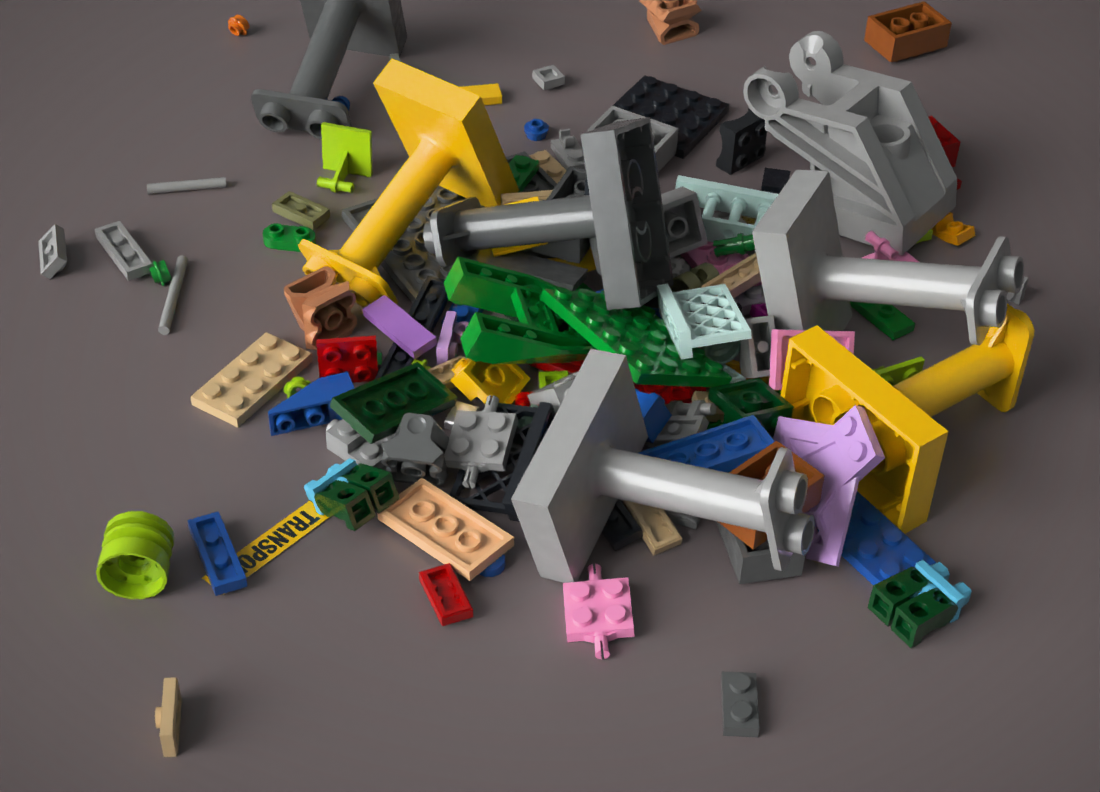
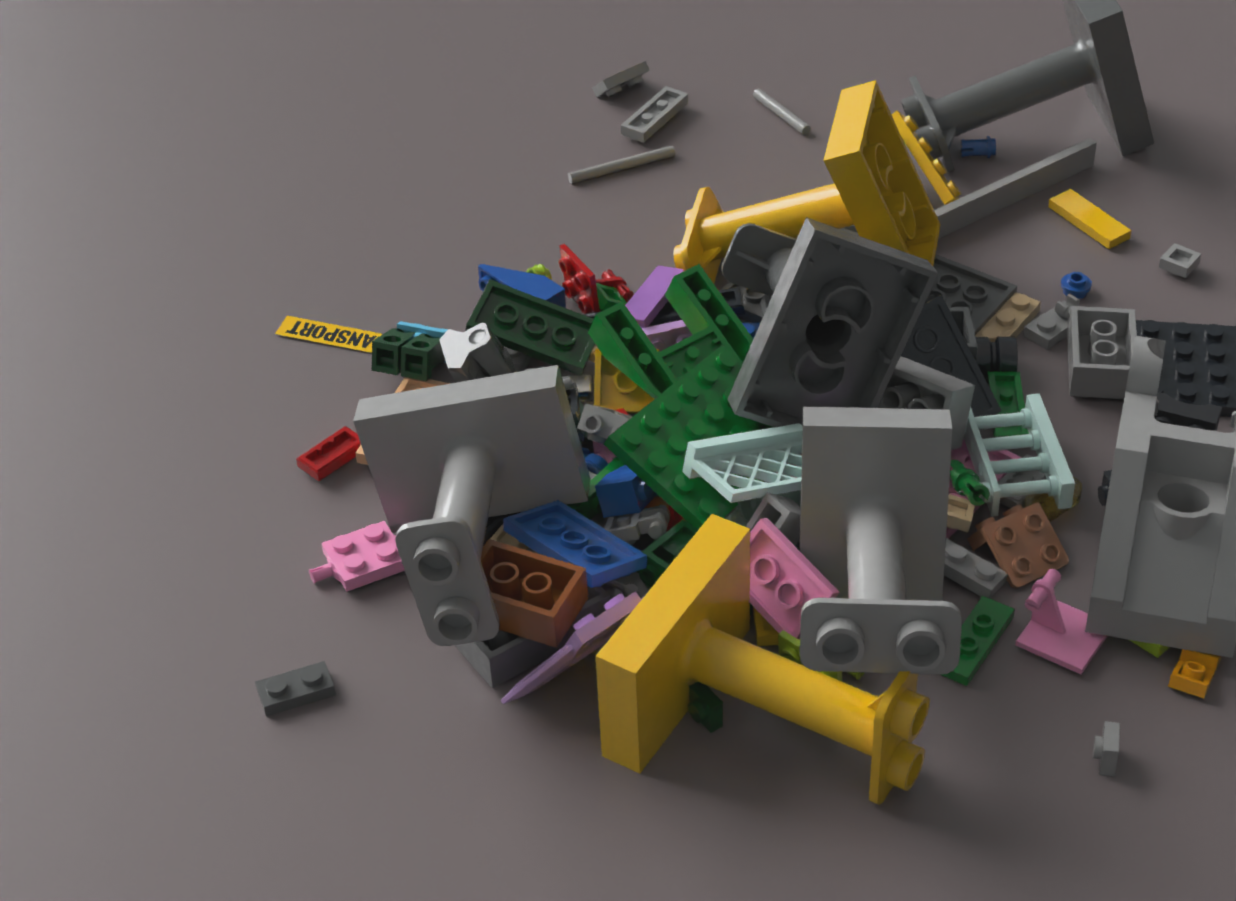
camera: 70 degrees right, 0 degrees up
(135, 555) = (274, 259): lime wheel -> none
(160, 272) = (641, 143): green plate -> none
(169, 717) = (120, 351): tan plate -> none
(217, 553) = (310, 309): blue plate -> none
(238, 25) = (1059, 39): orange plate -> none
(251, 379) = (526, 245): tan plate -> none
(286, 237) = (751, 190): green plate -> none
(301, 210) = (795, 179): olive plate -> none
(322, 306) = (637, 239): nougat piece -> none
(383, 139) = (921, 151): none -> yellow plate
(523, 170) = (964, 291): green plate -> none
(877, 545) = (562, 737): blue plate -> none
(918, 601) = (494, 784): dark green hips -> none

